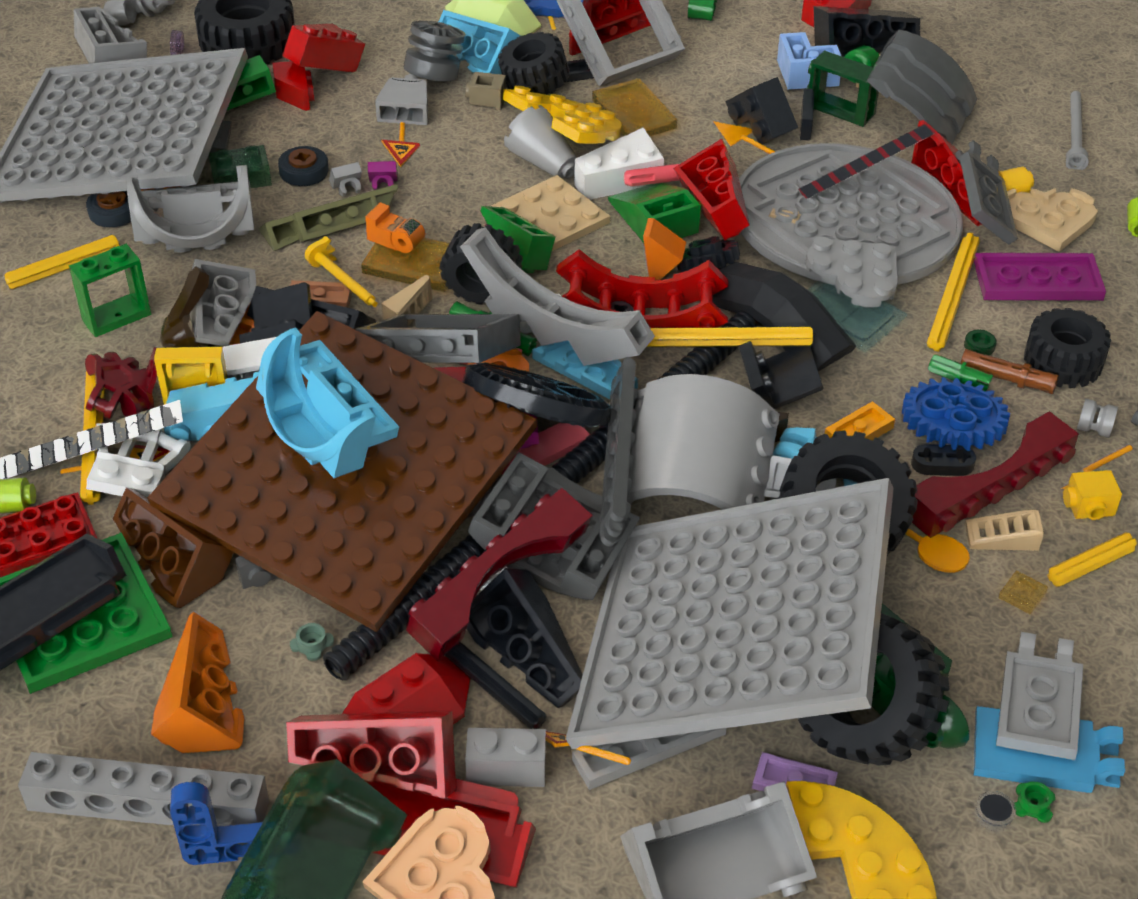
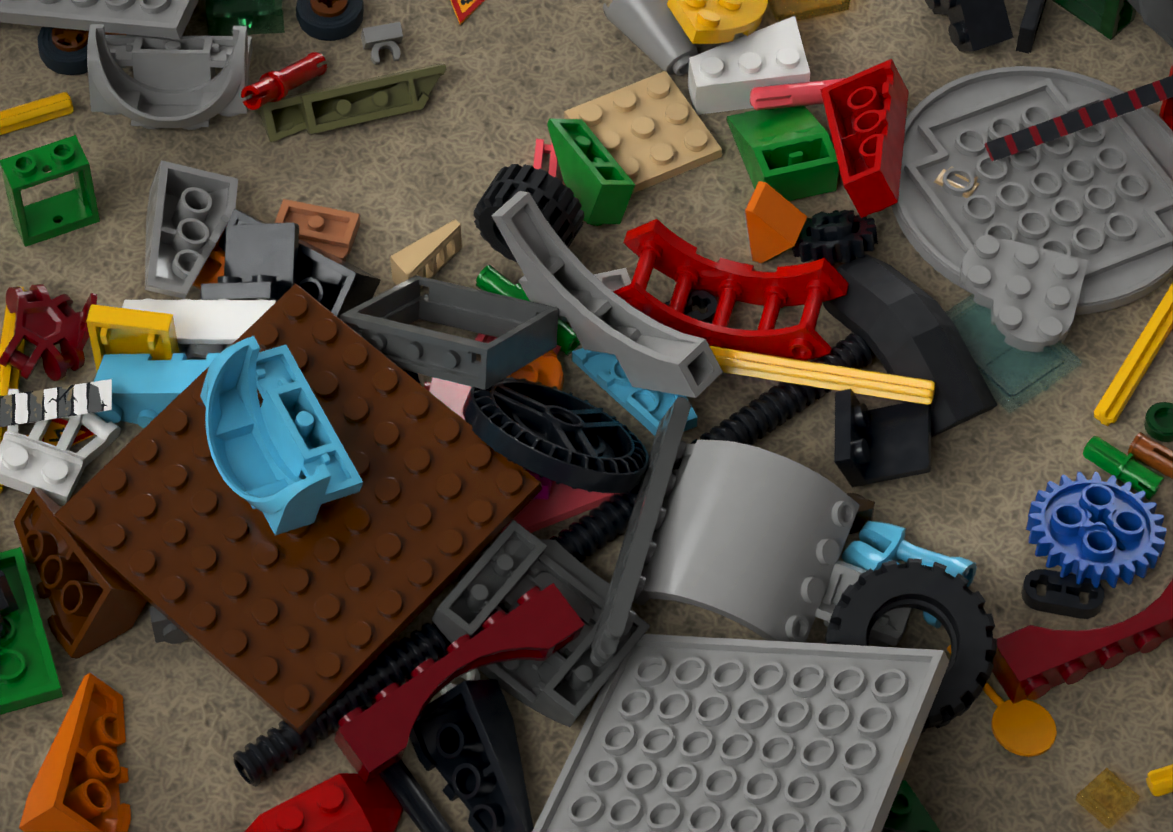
camera: 10 degrees right, 10 degrees up
(175, 327) = (122, 266): dark brown piece -> none
(274, 208) = (276, 84): none -> red pin
(308, 633) = (224, 718): sand green plate -> none
(319, 255) = (327, 161): yellow piece -> none
(382, 172) = (431, 37): magenta tile -> none
(393, 230) = (426, 141): orange leg -> none
(410, 266) = (438, 182): clear yellow plate -> none
(736, 133) = (928, 27): light orange piece -> none
(868, 420) = (967, 529): light orange plate -> none
(1018, 540) = (1123, 725): tan slope -> none

